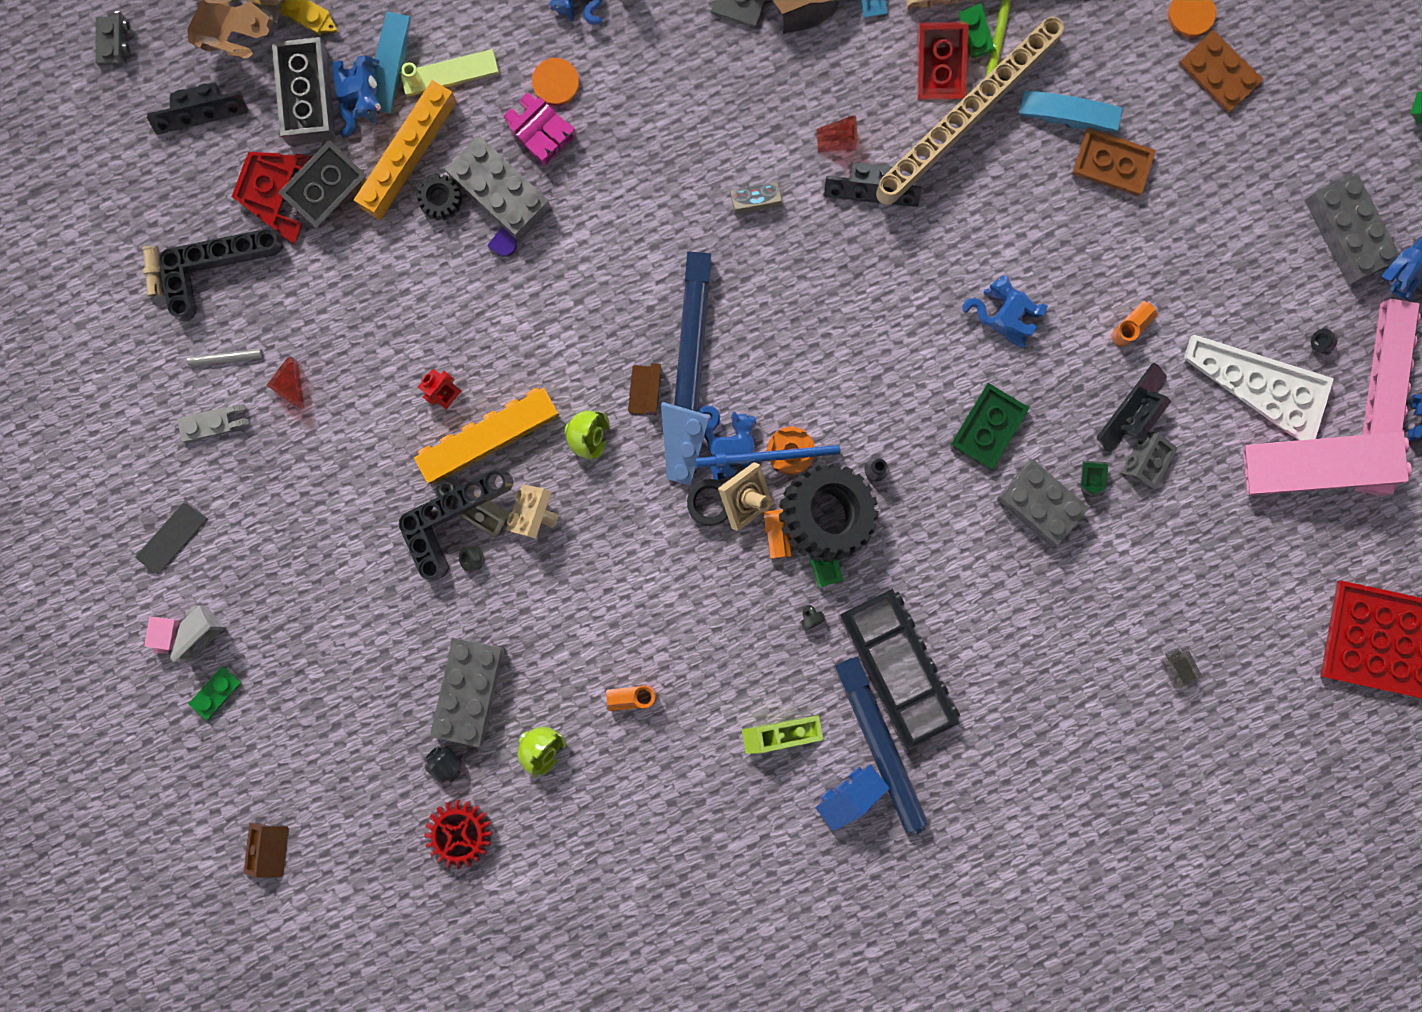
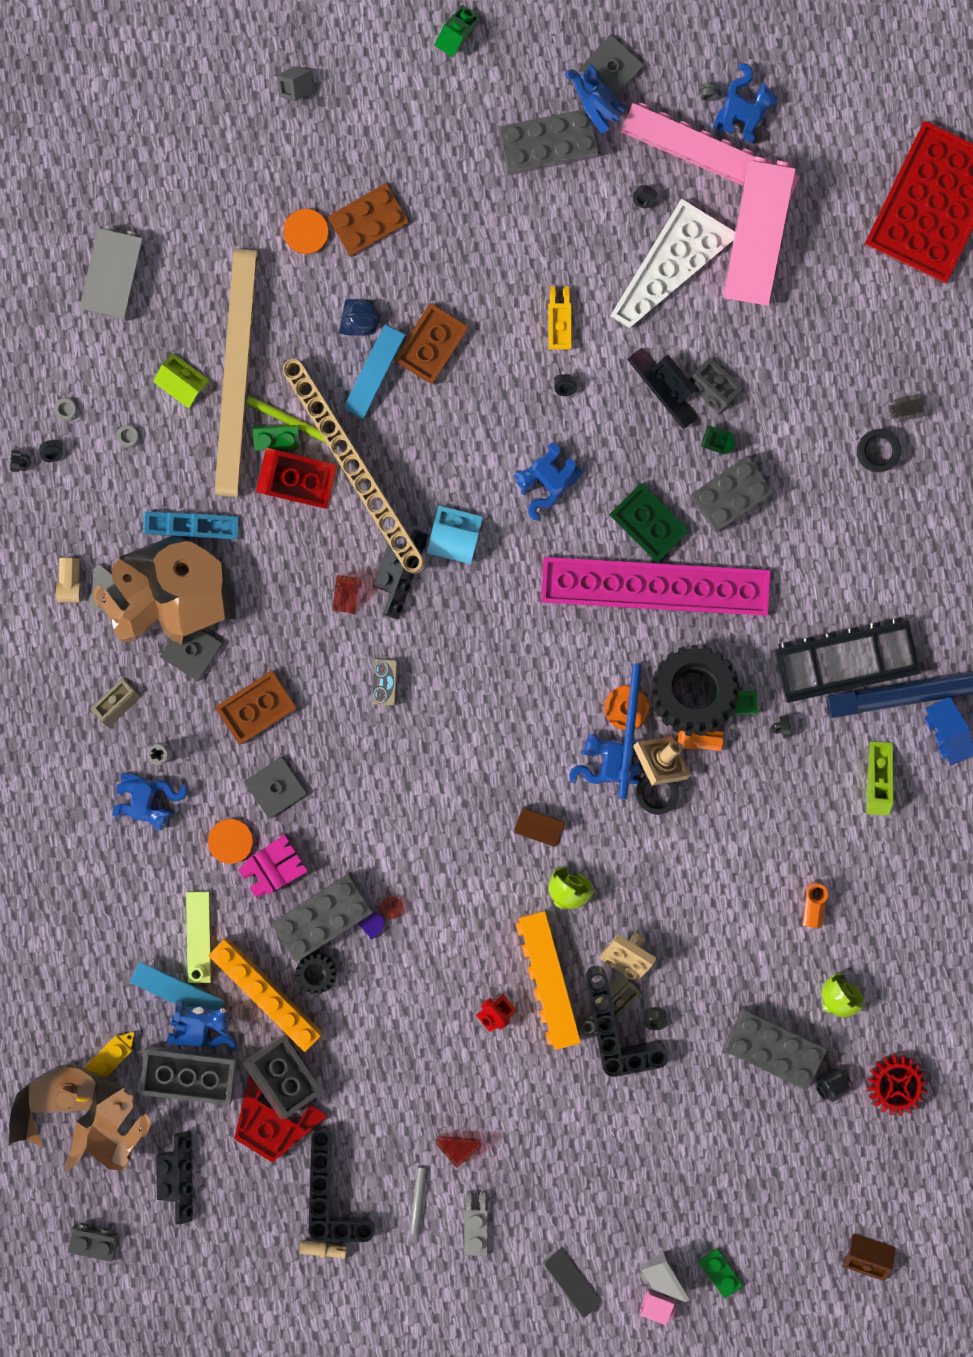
camera: 75 degrees left, 5 degrees up
(525, 258) = (391, 907): none -> clear red tile
(621, 113) = (275, 787): none -> dark grey plate
(682, 441) = (597, 804): medium blue wing -> none
(692, 330) = (506, 774): dark blue brick -> none
(698, 74) = (255, 707): none -> dark orange plate
(871, 471) = (656, 634): black cone -> none
(925, 230) = (454, 534): none -> medium azure brick
(925, 449) = (655, 586): none -> dark pink plate
(1108, 306) = (565, 385): none -> black tile
(1119, 86) = (359, 318): none -> dark blue piece
(1134, 323) = (585, 364): orange piece -> none
(1147, 648) = (891, 438): none -> black tyre
(1172, 285) = (559, 321): none -> yellow hinge

